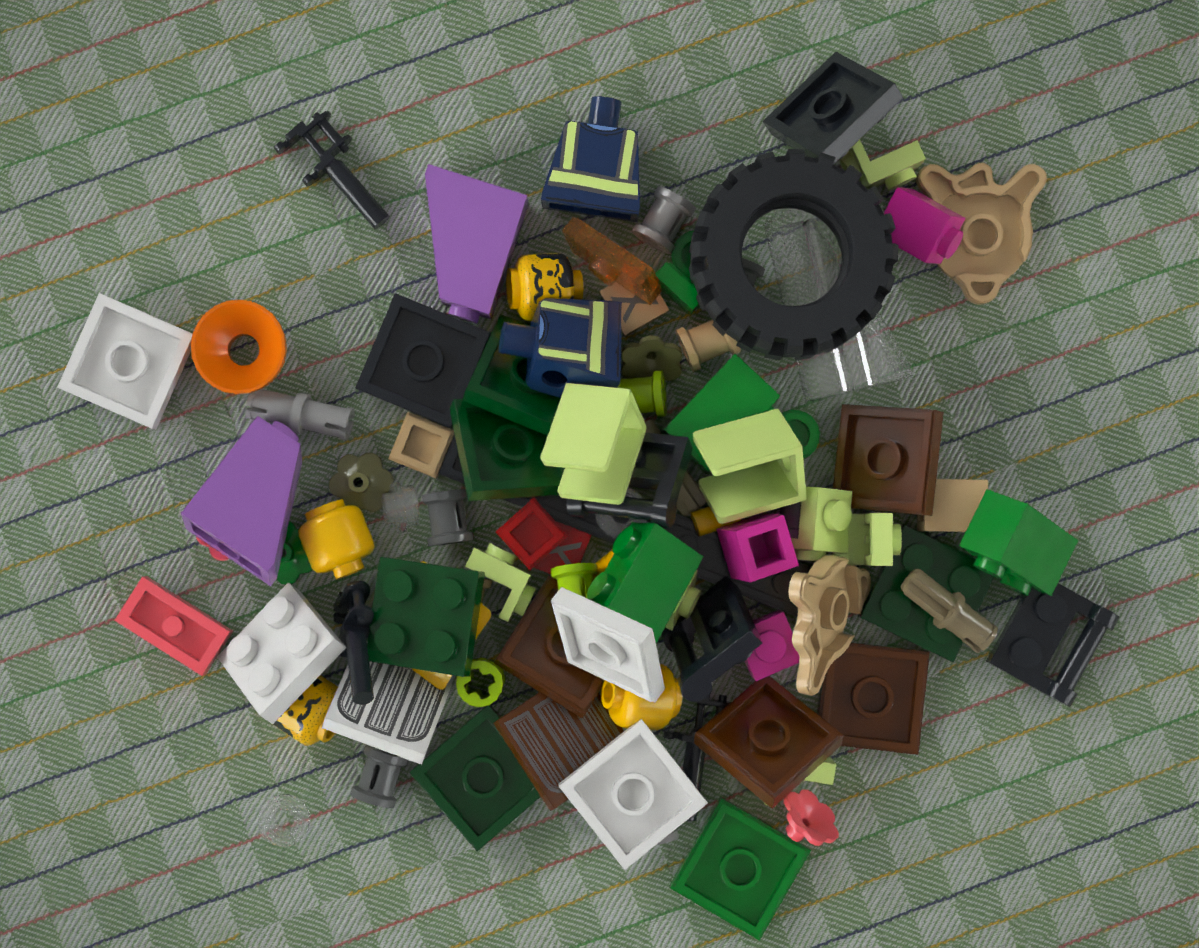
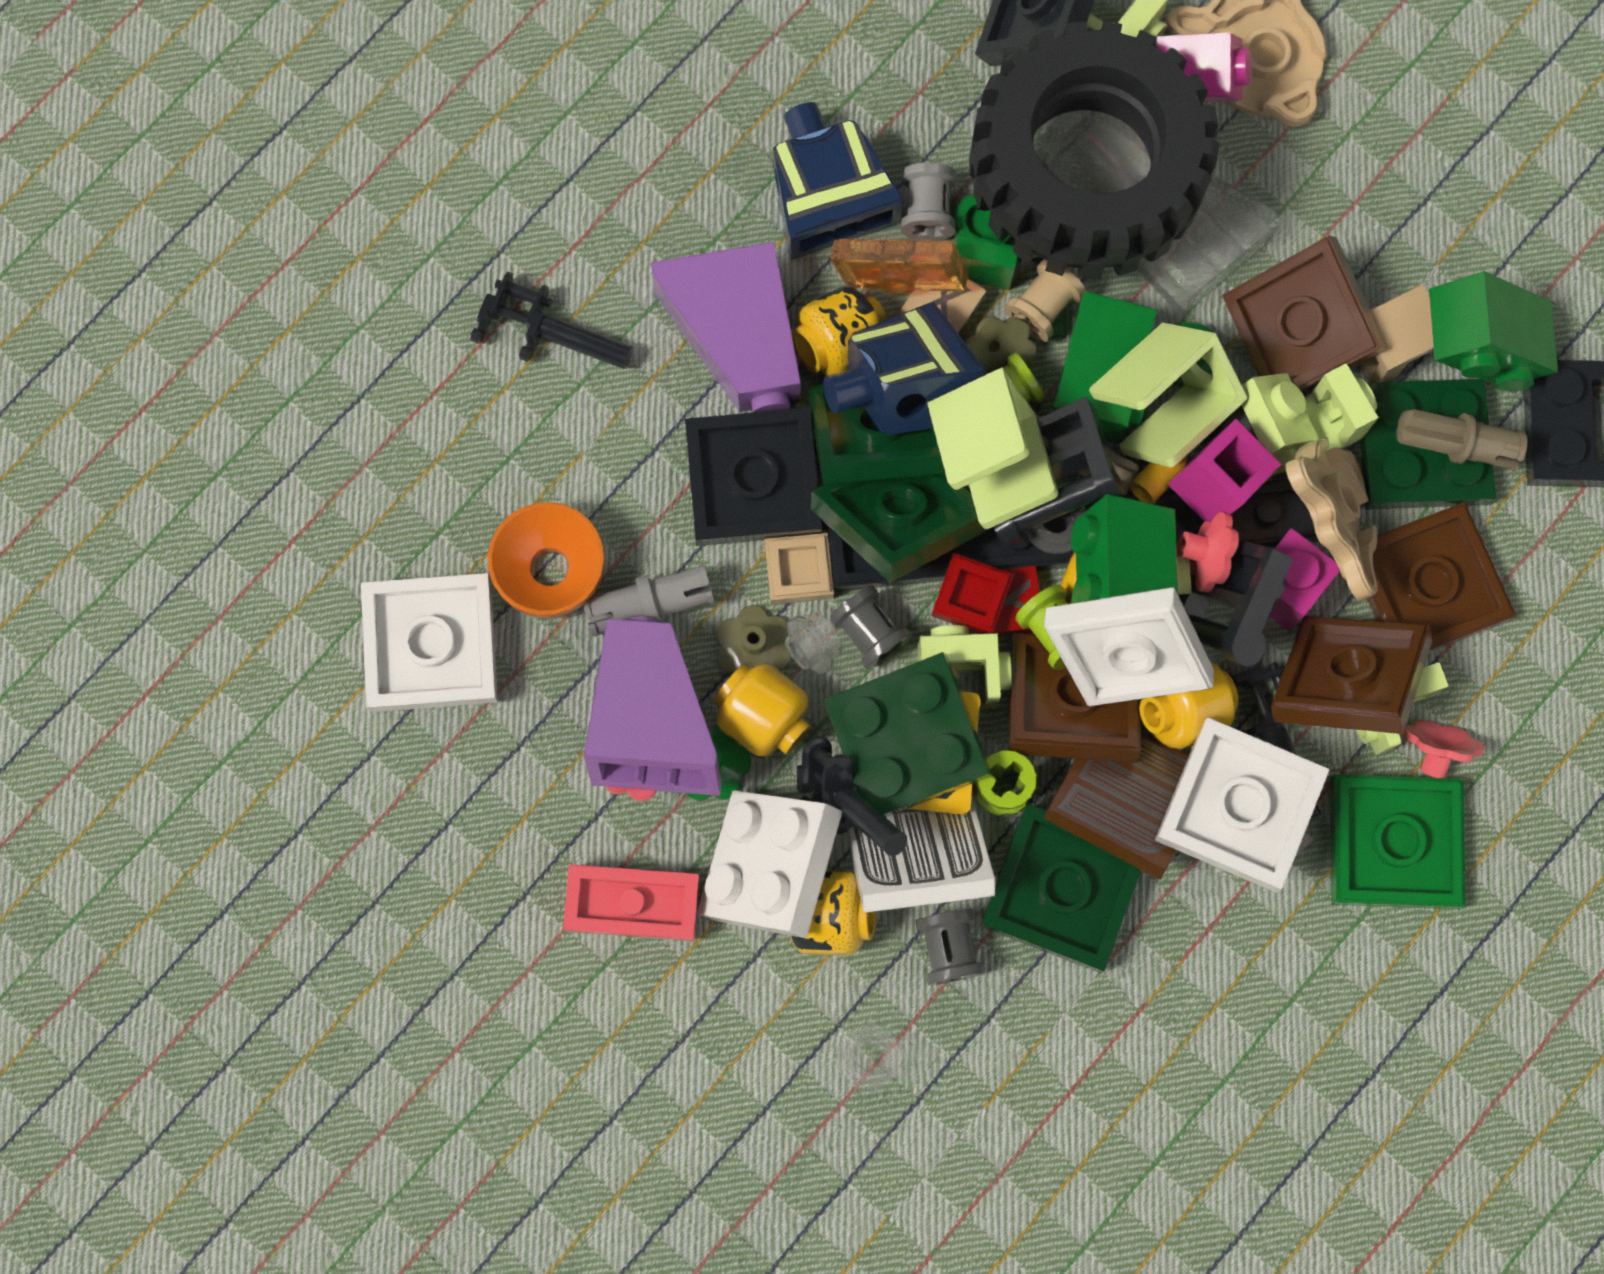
camera: 25 degrees left, 10 degrees down
(714, 598) = (1210, 551): none -> coral plant

